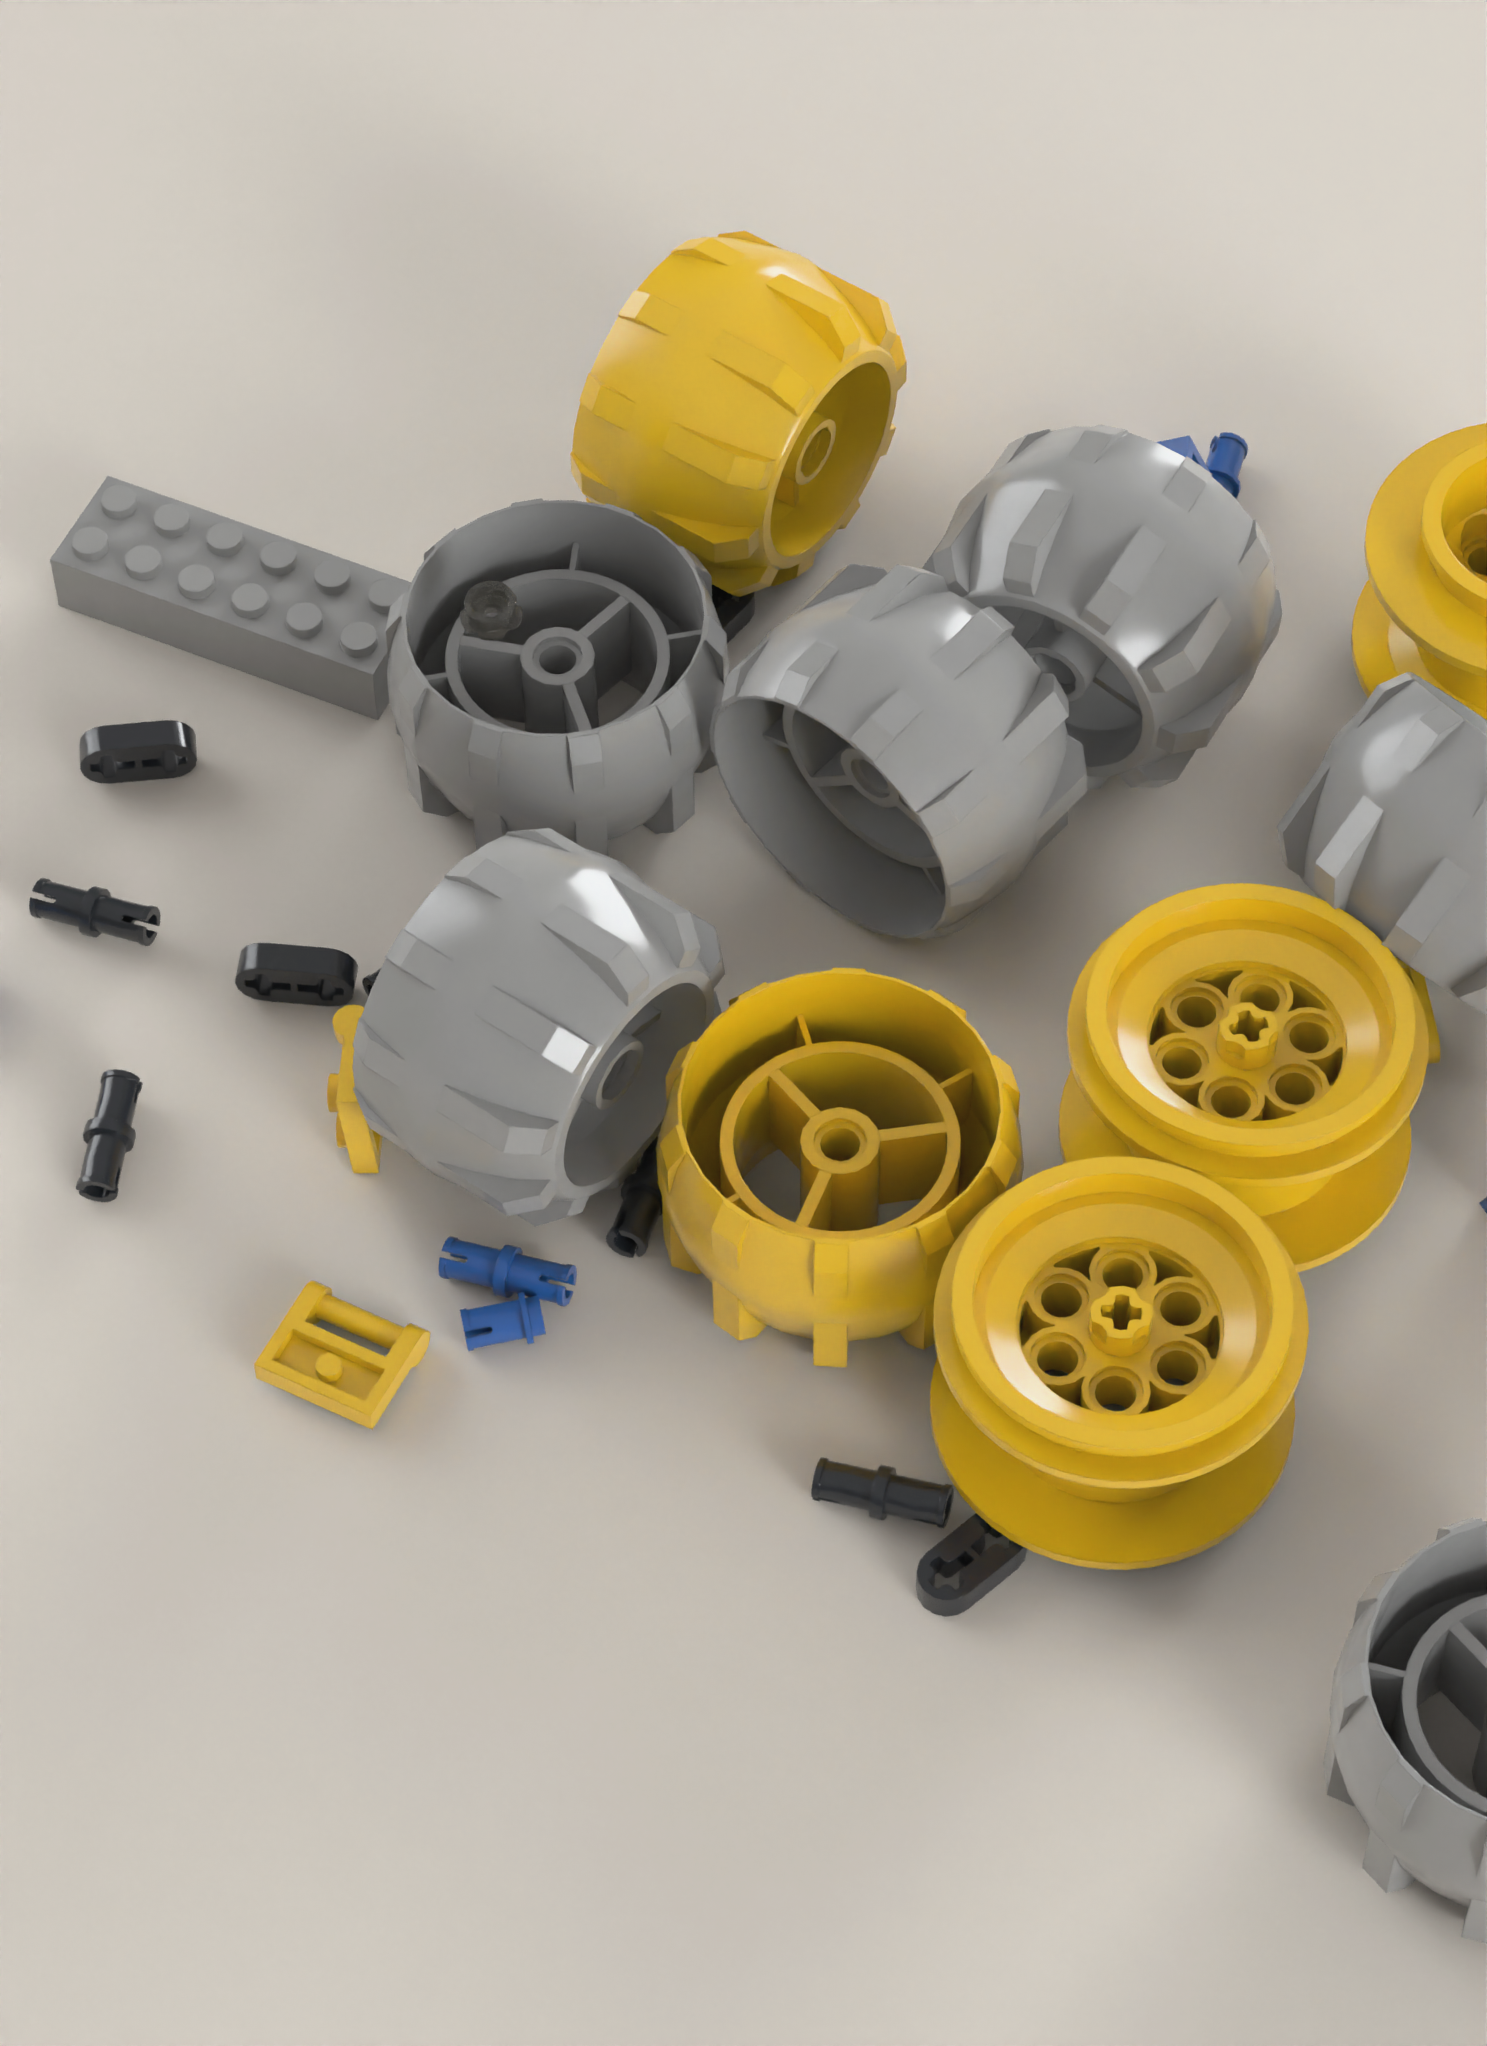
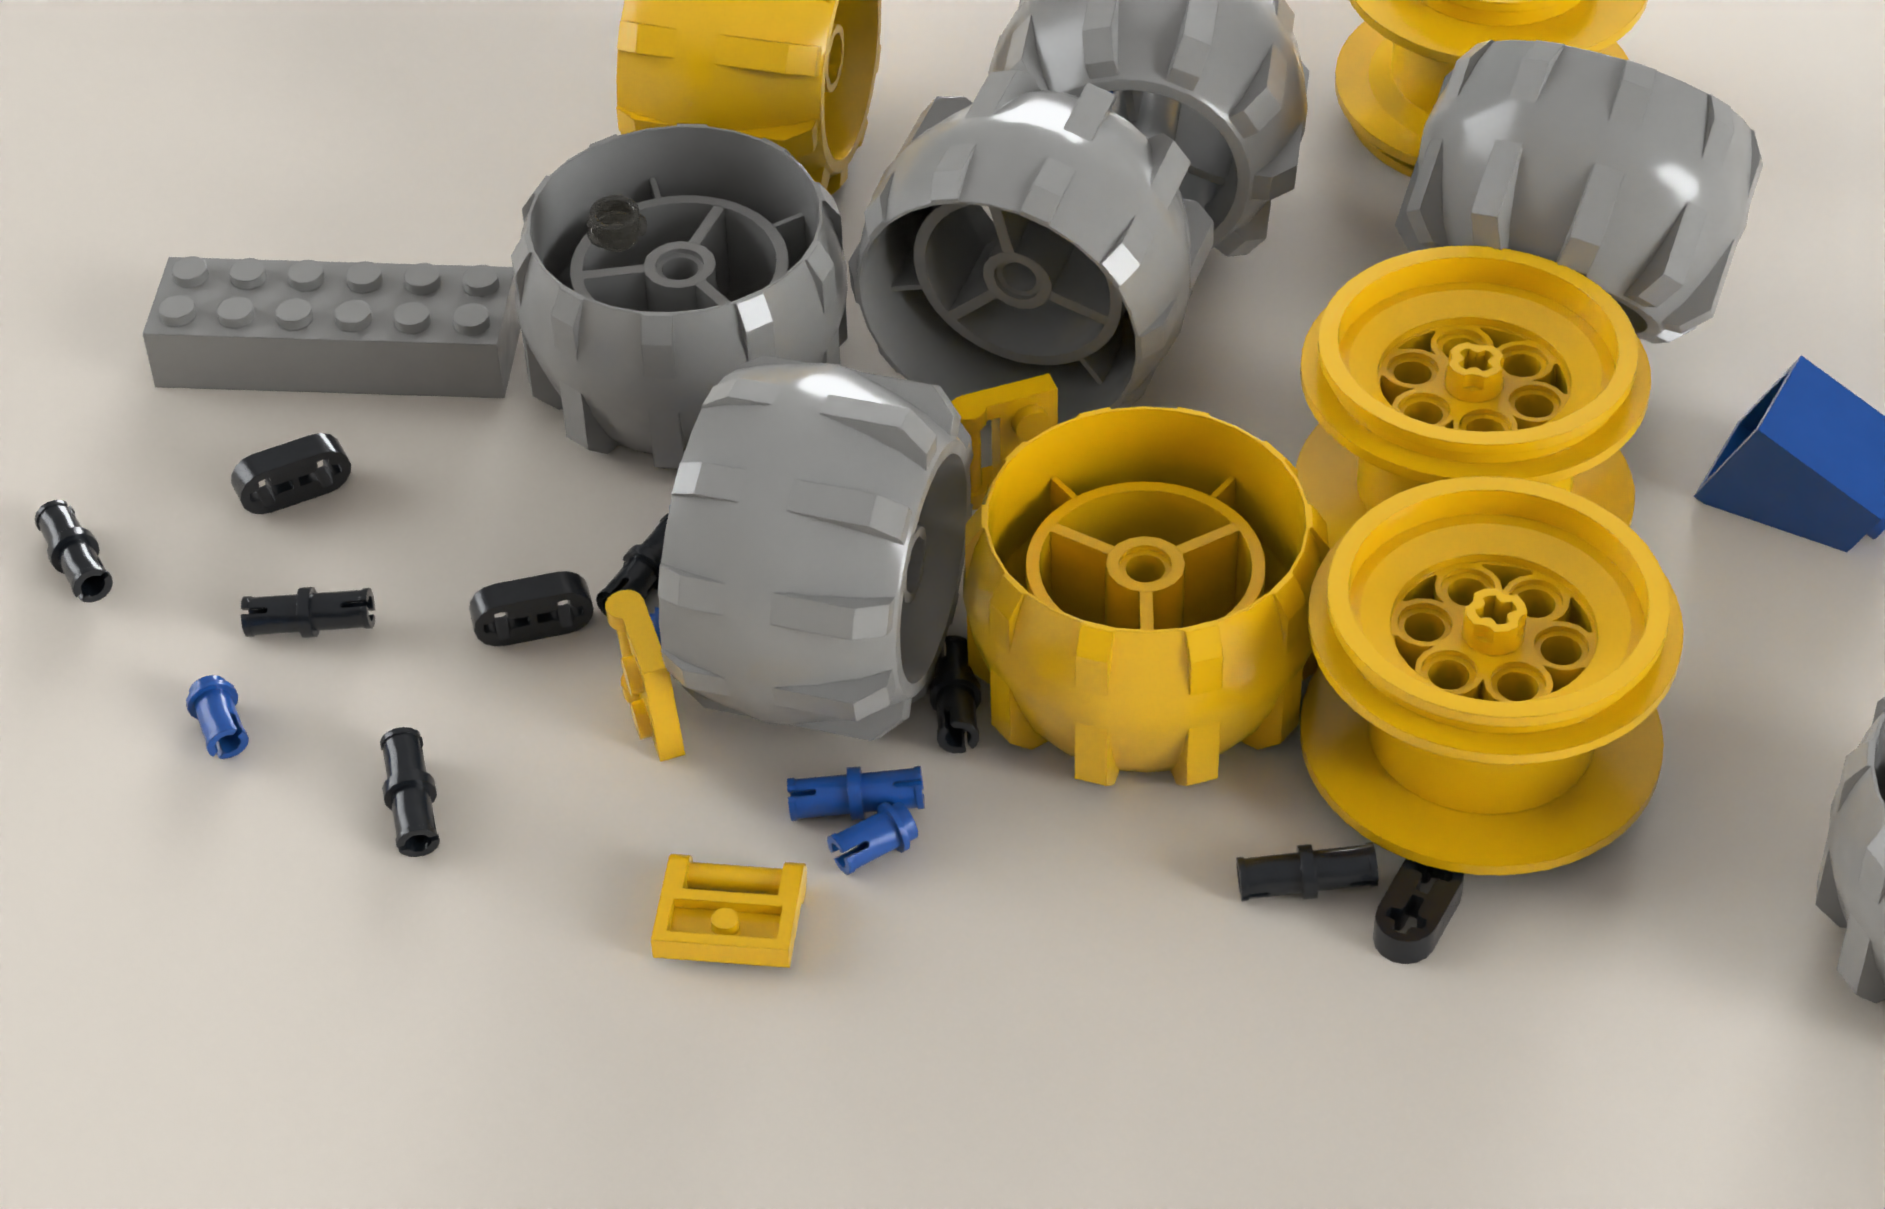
camera: 20 degrees left, 10 degrees down
(829, 930) = (1016, 415): none -> yellow plate

